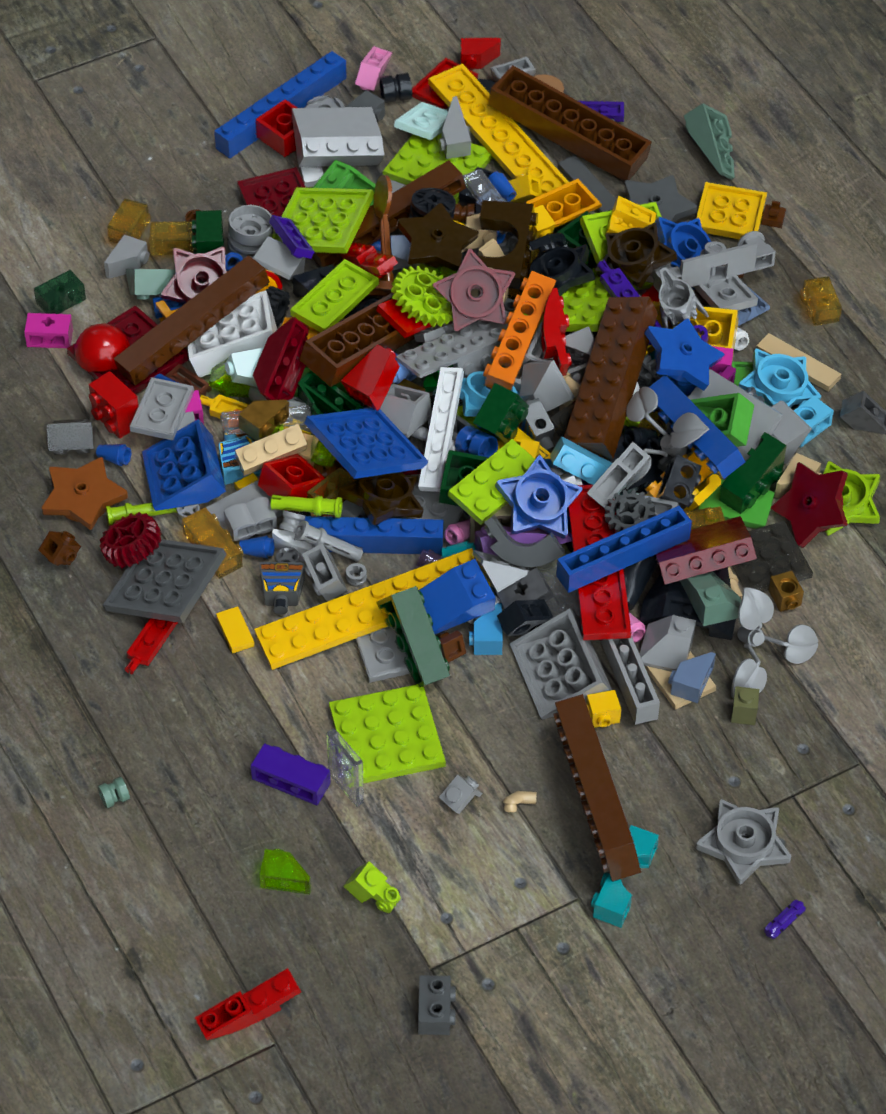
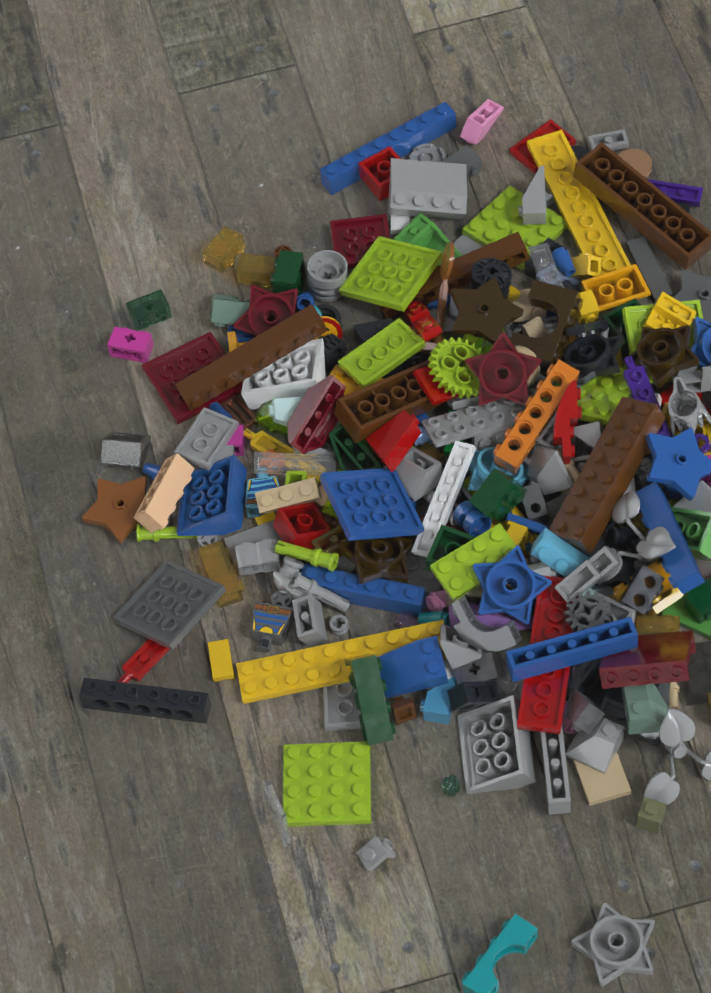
camera: 20 degrees right, 5 degrees up
(60, 548) = (88, 558): reddish brown brick -> none
(99, 346) = (168, 368): red cylinder -> none
(113, 404) = (165, 426): red brick -> none
(113, 792) = (74, 797): sand green wheel -> none
(128, 254) = (215, 280): light grey slope -> none
(130, 468) = (164, 493): none -> light nougat brick
(130, 540) = (149, 560): dark red gear -> none
(162, 681) = (145, 700): none -> black brick
(258, 546) = (260, 584): blue cone -> none
(263, 417) = (288, 463): pearl gold slope -> none
(278, 259) = (345, 307): light grey slope -> none
(283, 873) = (202, 899): clear neon green slope -> none
(290, 774) = (233, 807): dark purple brick -> none
(291, 237) = (358, 288): dark purple plate -> none
(371, 883) = (273, 925): lime brick -> none
(395, 87) = (495, 145): black wheel -> none
(423, 120) = (510, 183): light aqua tile -> none
(462, 212) = (524, 281): reddish brown wheel -> none
(479, 51) = (582, 118): red slope -> none
(518, 797) = (426, 866): tan arm -> none
(523, 712) = (451, 785): none -> clear green plate
(547, 442) = (533, 527): none -> blue tile
(596, 788) = (490, 875): reddish brown brick -> none
(604, 708) = (521, 795): yellow brick -> none
(648, 613) = (582, 712): none -> flat silver slope
(692, 677) = (609, 779): sand blue slope -> none

